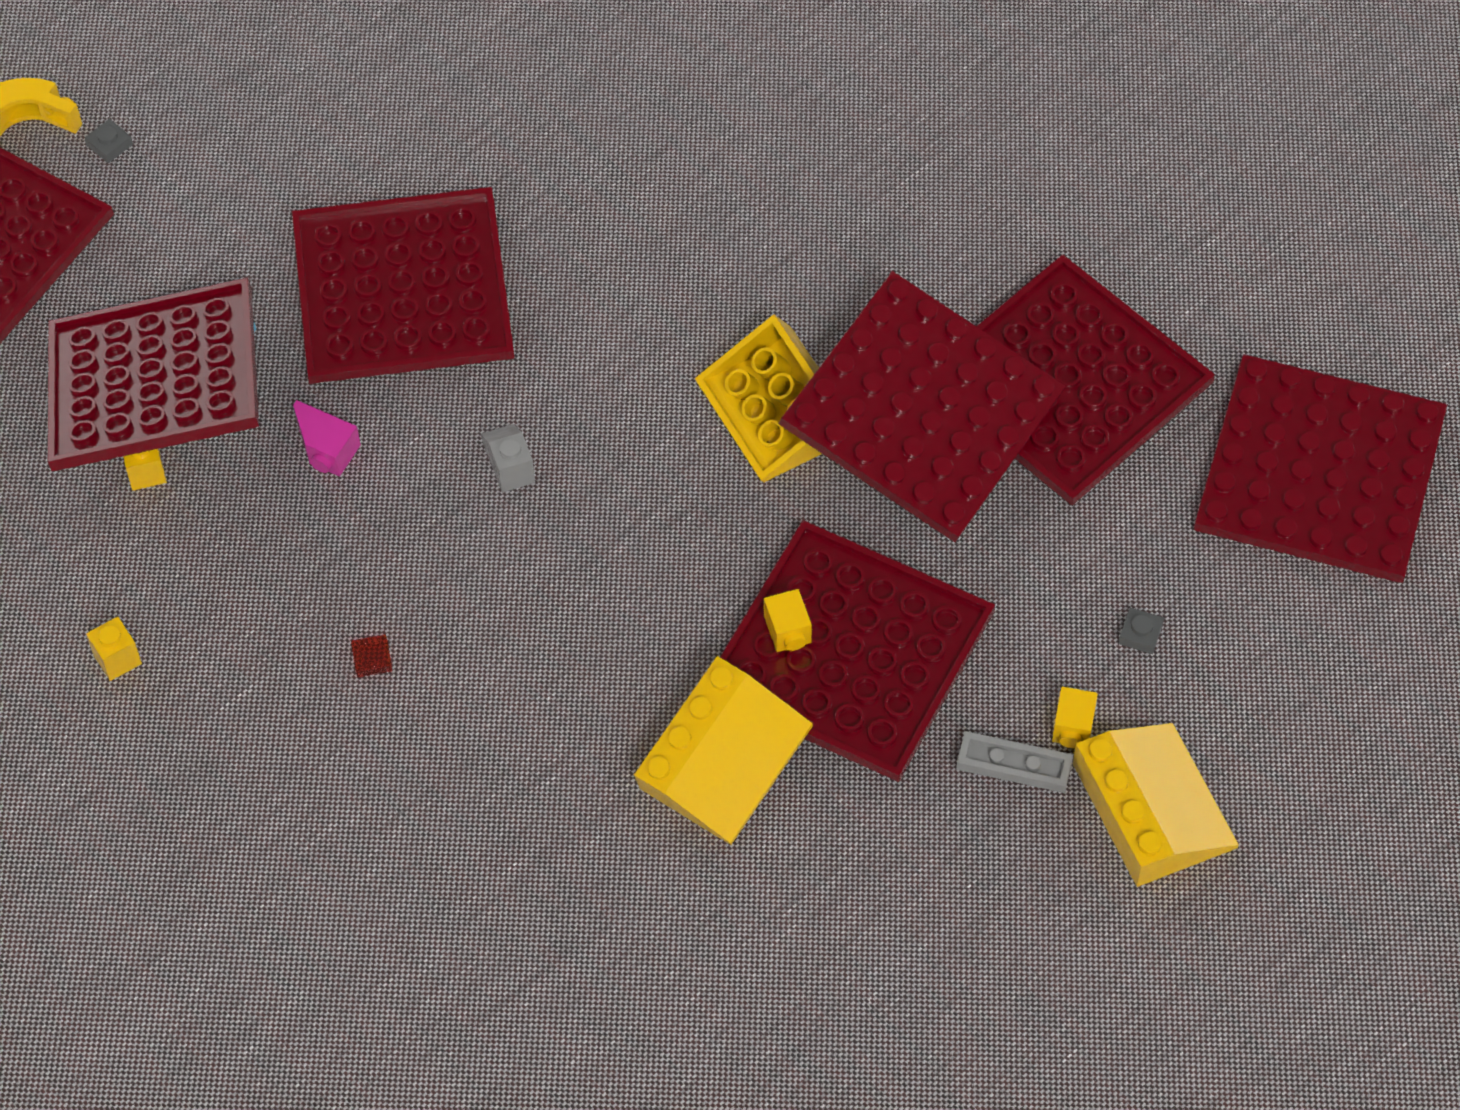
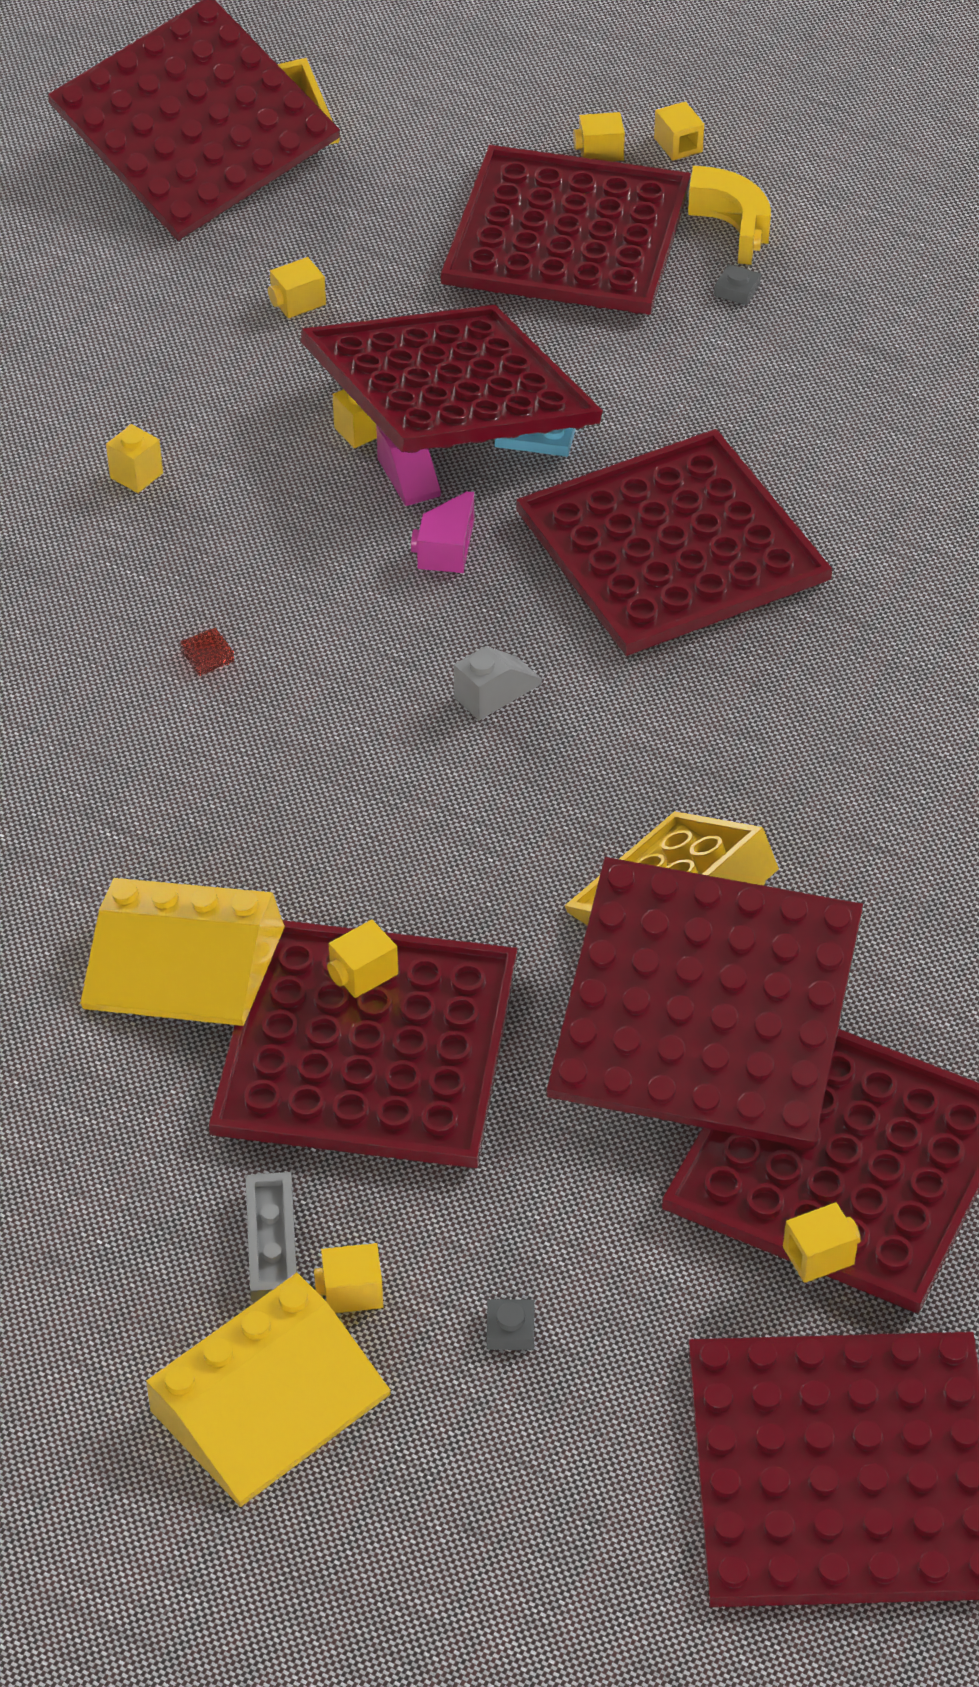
camera: 70 degrees right, 10 degrees down
(224, 450) = (408, 472): none -> dark pink slope
(1157, 410) = (821, 1242): none -> yellow brick

